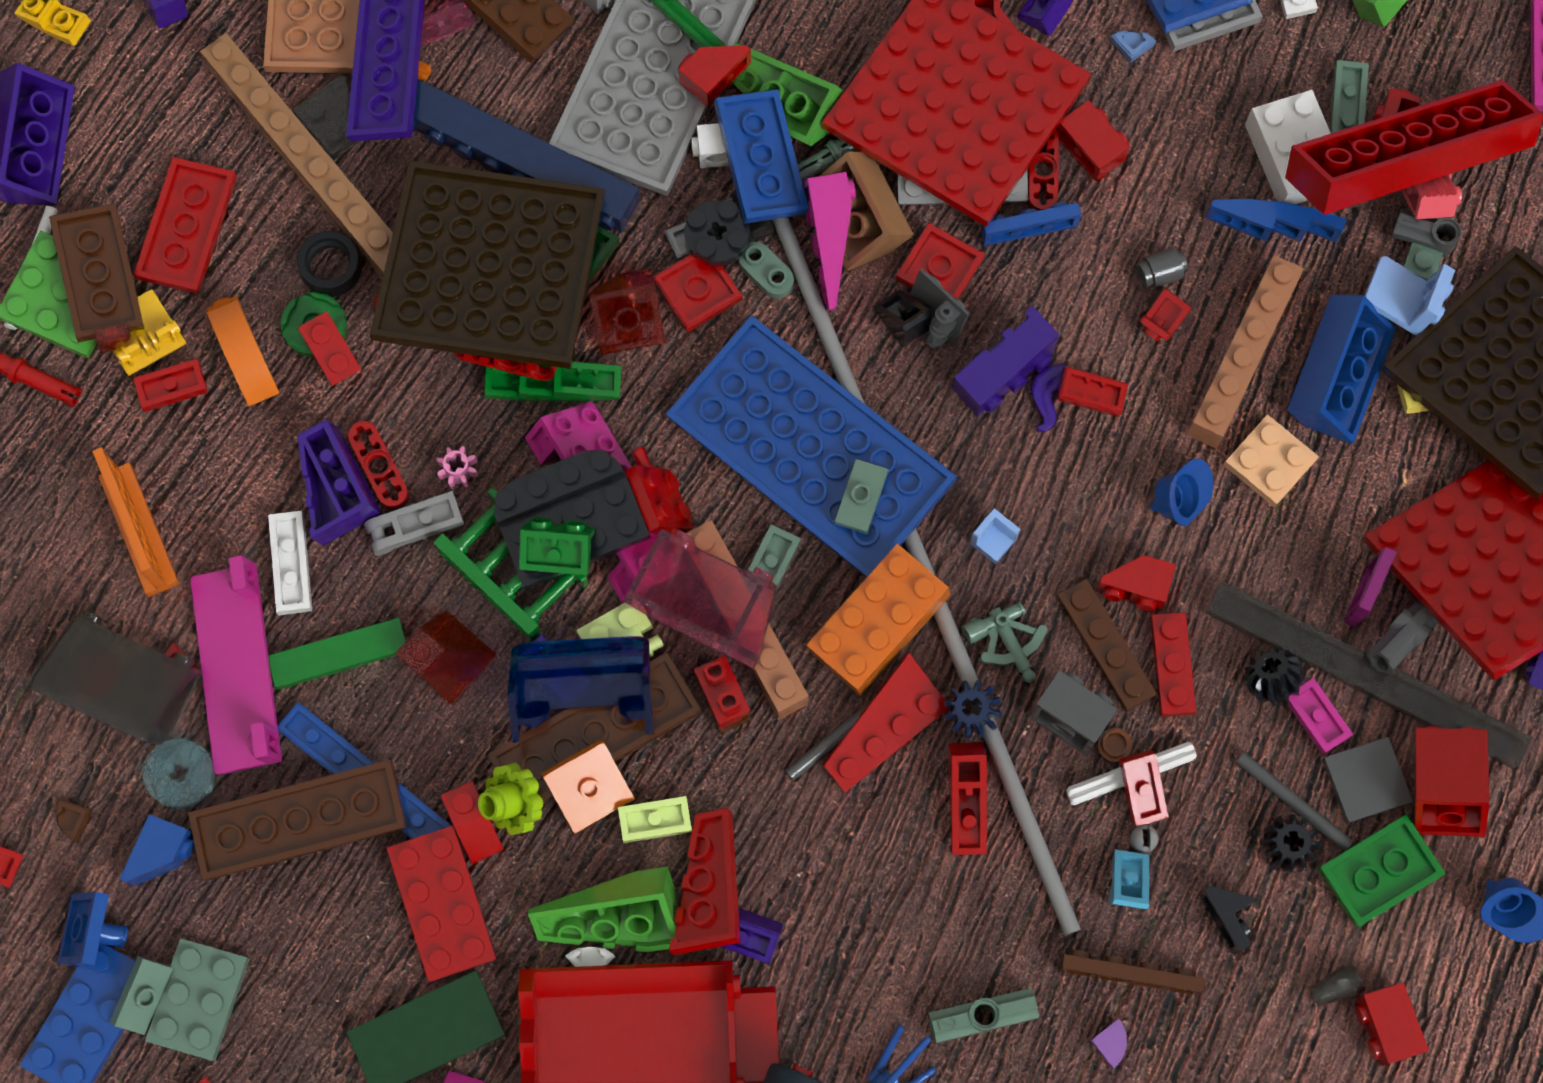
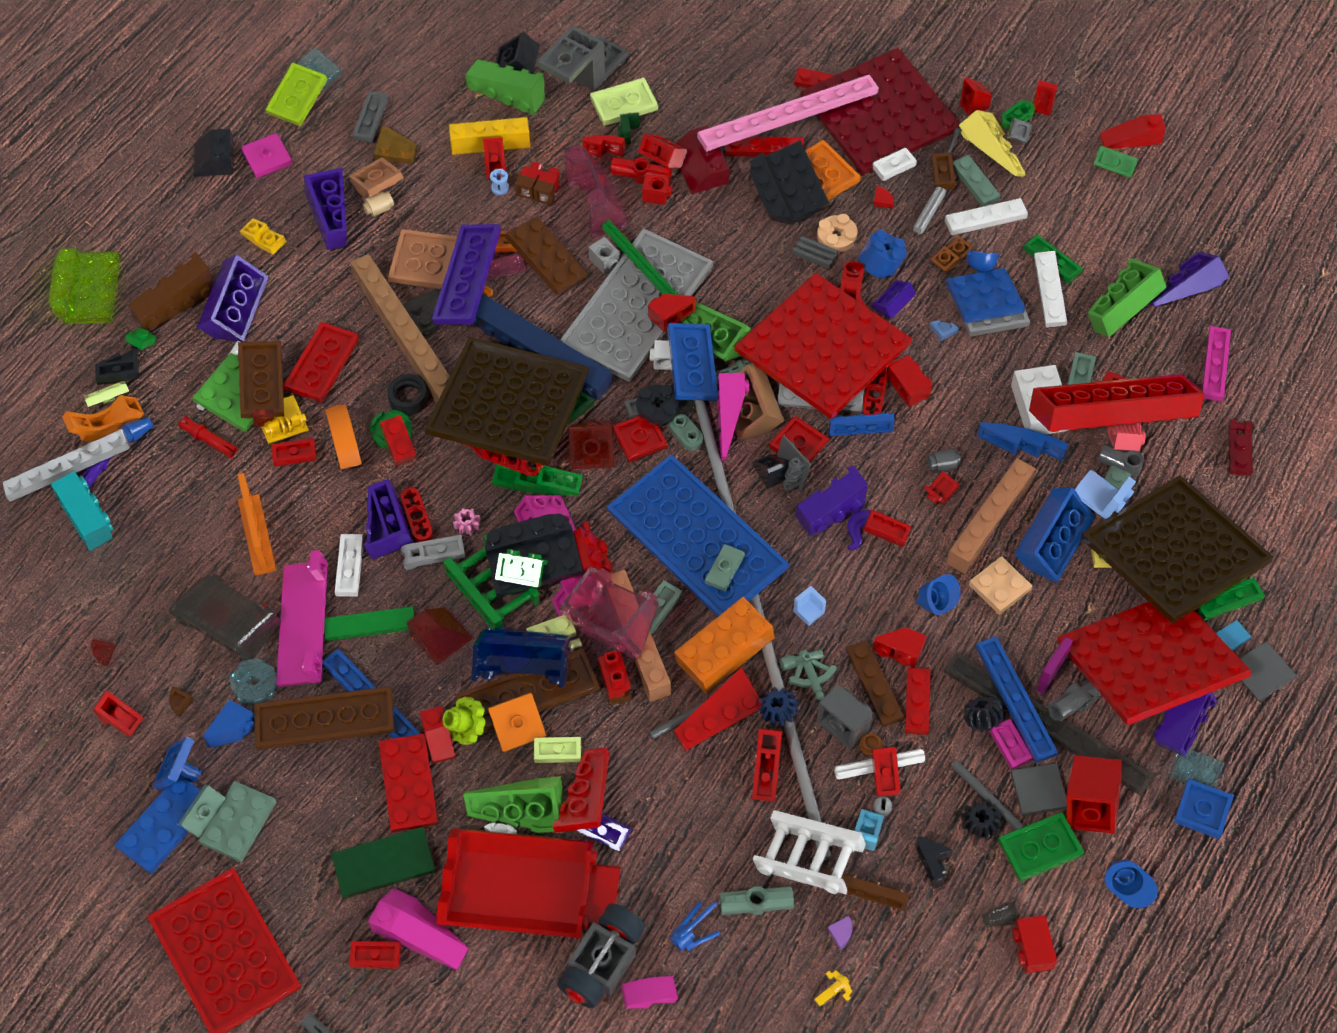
camera: 10 degrees right, 15 degrees down
(1040, 901) = (806, 830): none -> white fence
(1319, 647) = (1016, 699): none -> blue tile

